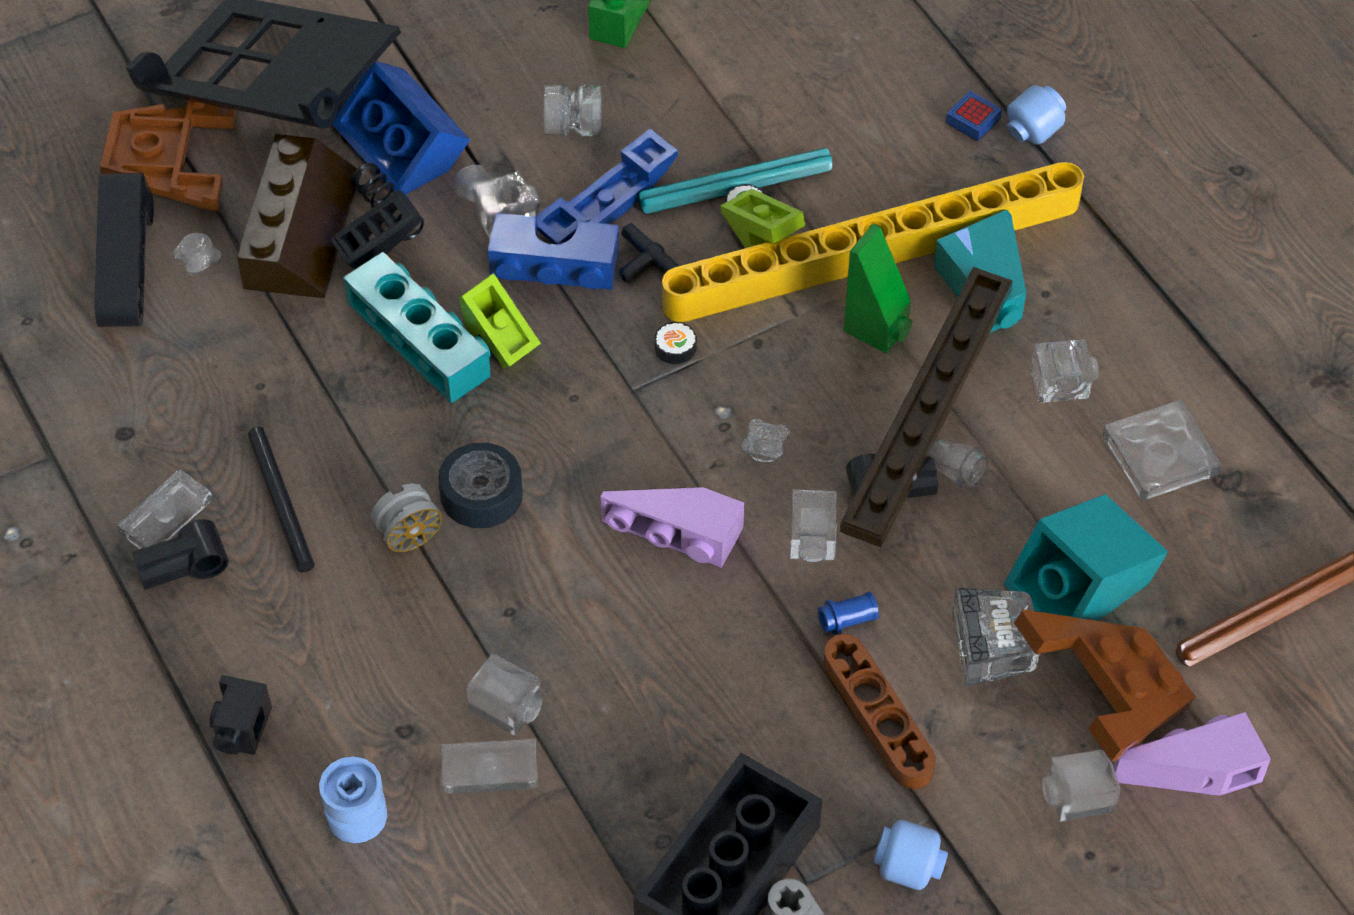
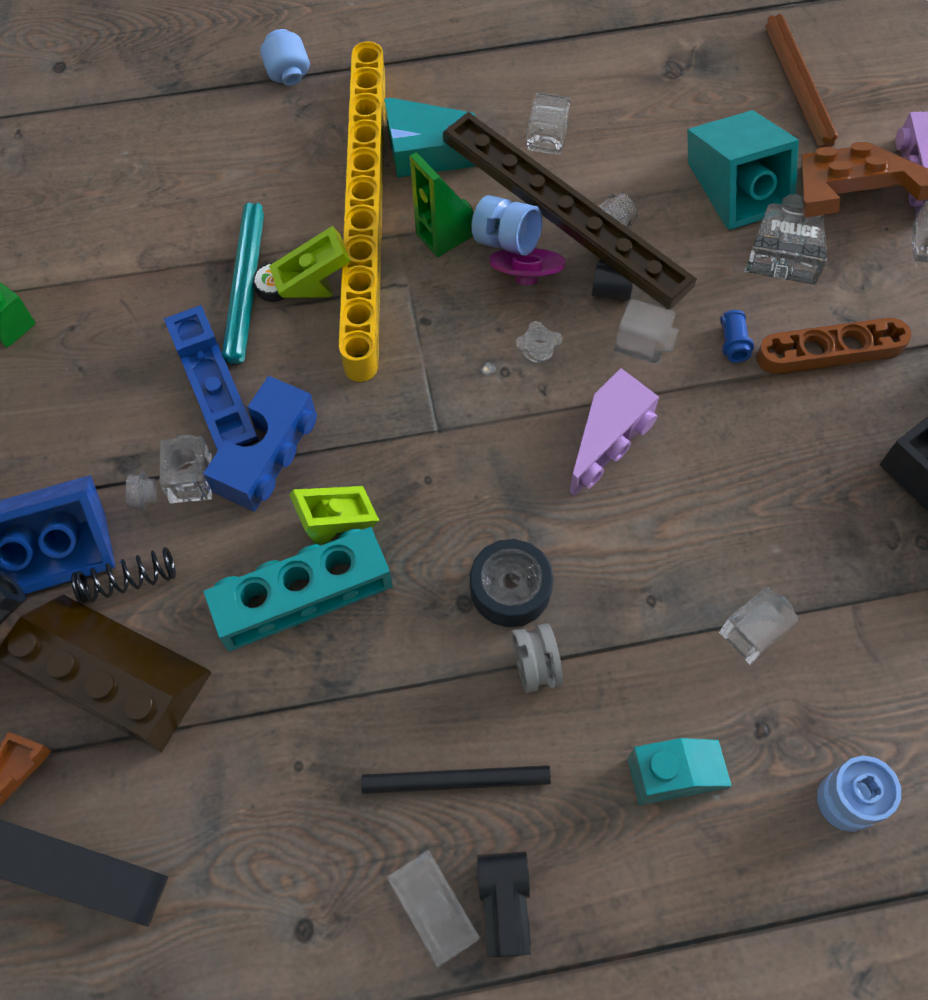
camera: 70 degrees left, 10 degrees up
(197, 253) = (85, 781): clear plate -> none
(240, 715) = (728, 887): black brick -> none
(337, 657) = (677, 769): none -> teal slope
(370, 223) = (154, 611): black slope -> none
(489, 766) = (830, 661): clear plate -> none
(572, 110) = (100, 377): clear wheel -> none
(650, 254) = (298, 369): black piece -> none
(675, 342) = (404, 379): tile -> none
(856, 398) = (527, 267): none -> magenta dish
(890, 364) = (507, 224): none -> light blue wheel
(974, 115) = (258, 100): tile -> none
(1161, 450) = (637, 94): clear plate -> none

